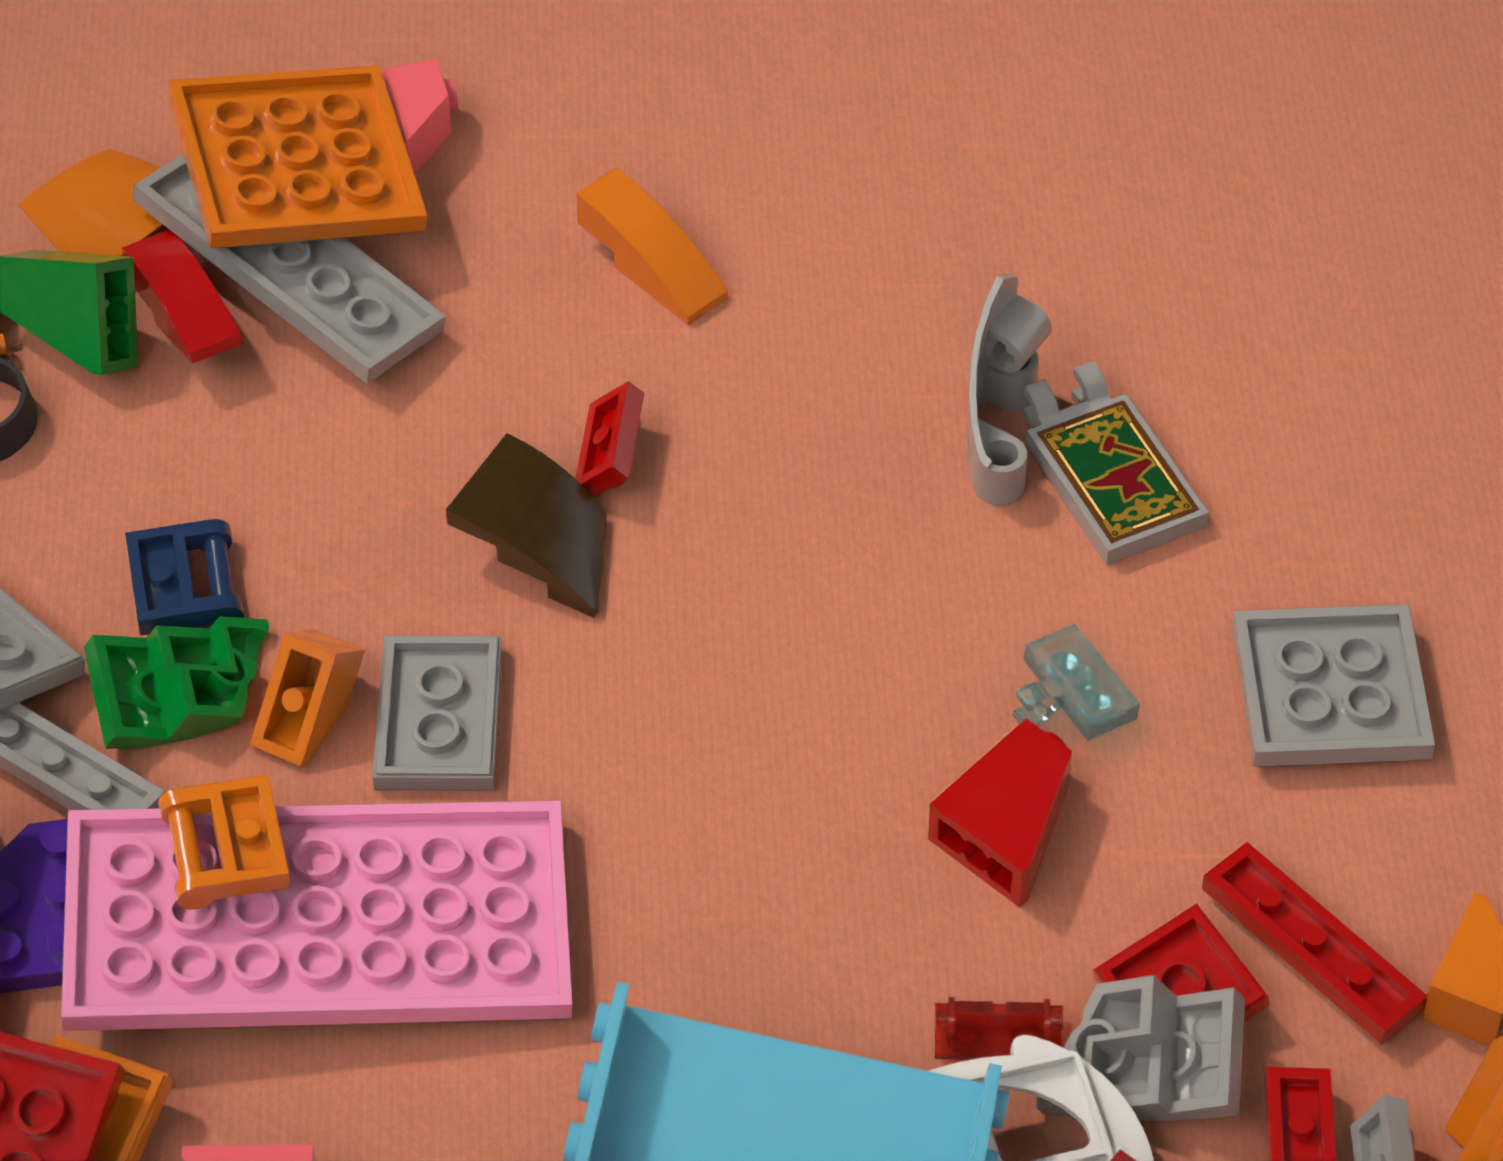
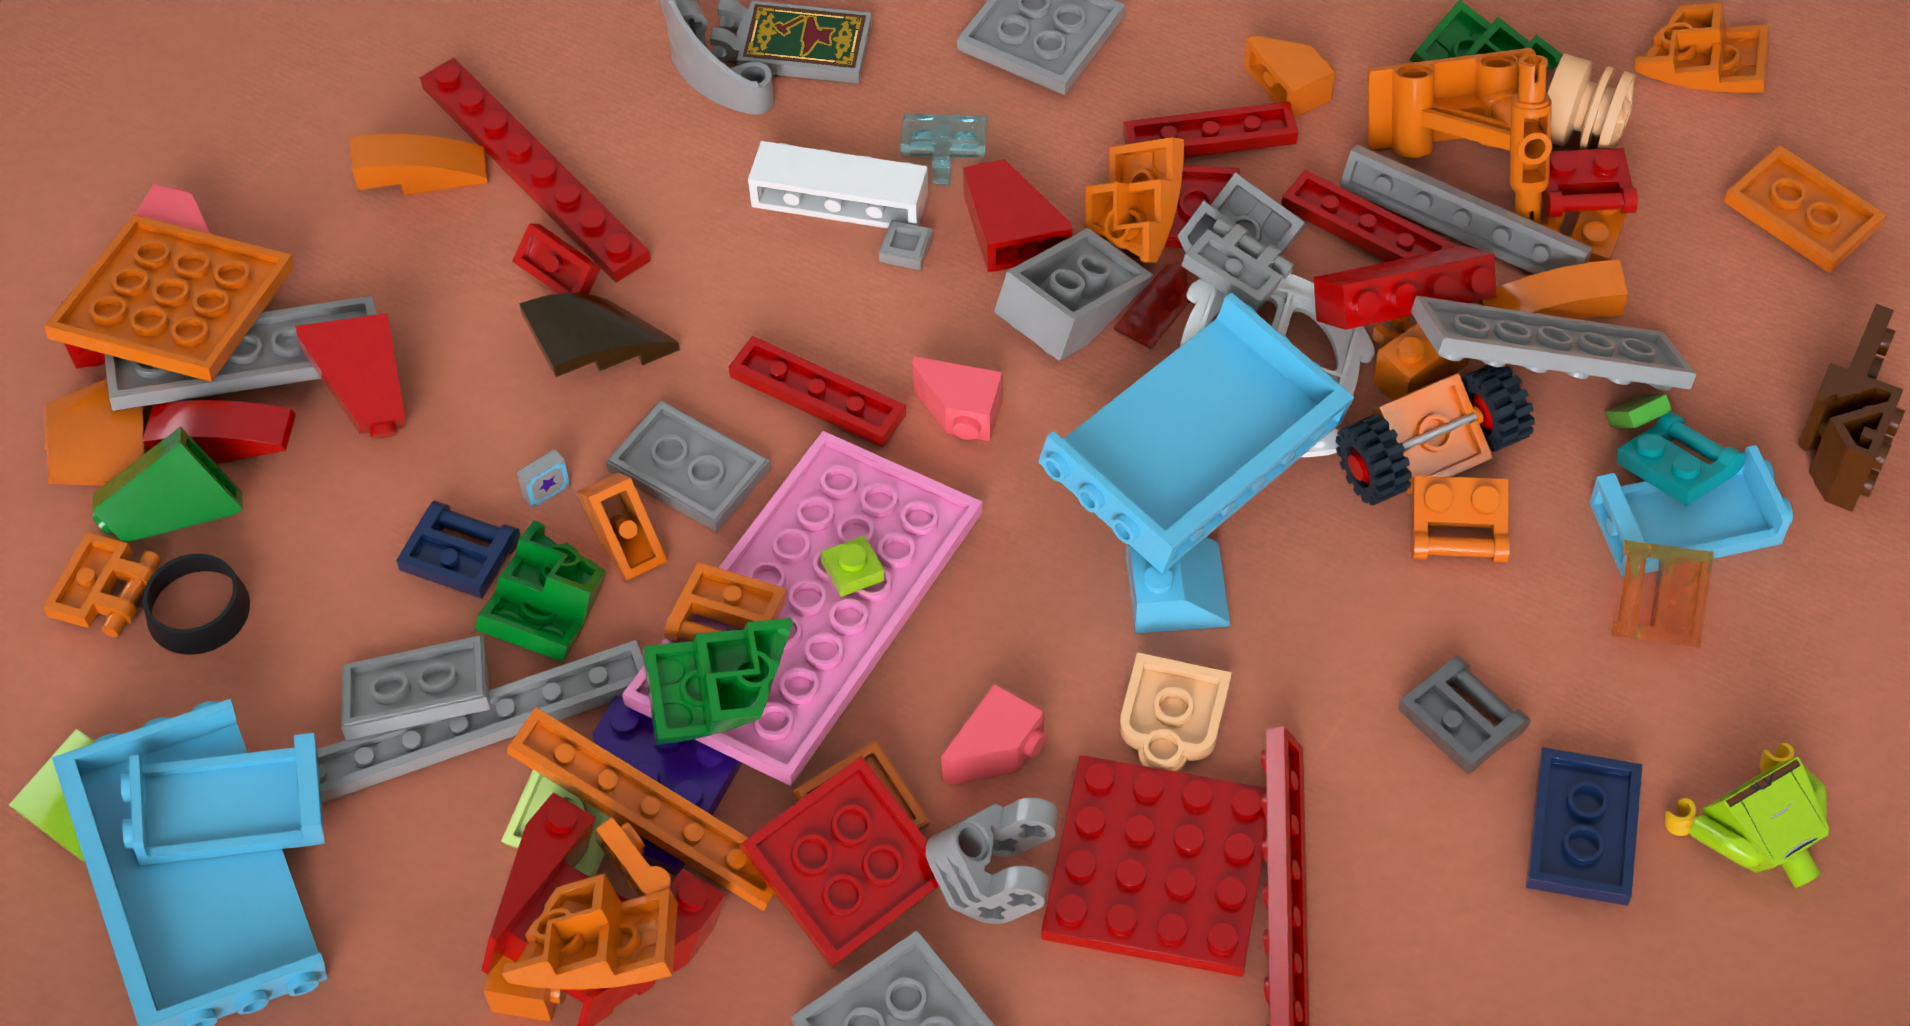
camera: 55 degrees left, 5 degrees up
(119, 871) = (713, 680): none -> green slope
(317, 594) = (543, 478): none -> light grey tile
(320, 358) = (358, 369): none -> red slope
(379, 924) = (852, 566): none -> lime plate
(618, 769) = (817, 391): none -> red plate
(705, 907) = (959, 396): none -> coral slope
(731, 353) = (536, 170): none -> red plate
(898, 737) = (905, 245): none -> light grey tile
(922, 625) = (837, 185): none -> white brick
(943, 928) = (1070, 292): none -> light grey slope
(1064, 1061) = (1237, 263): none -> light grey plate
(1119, 923) = (1141, 196): none -> orange slope

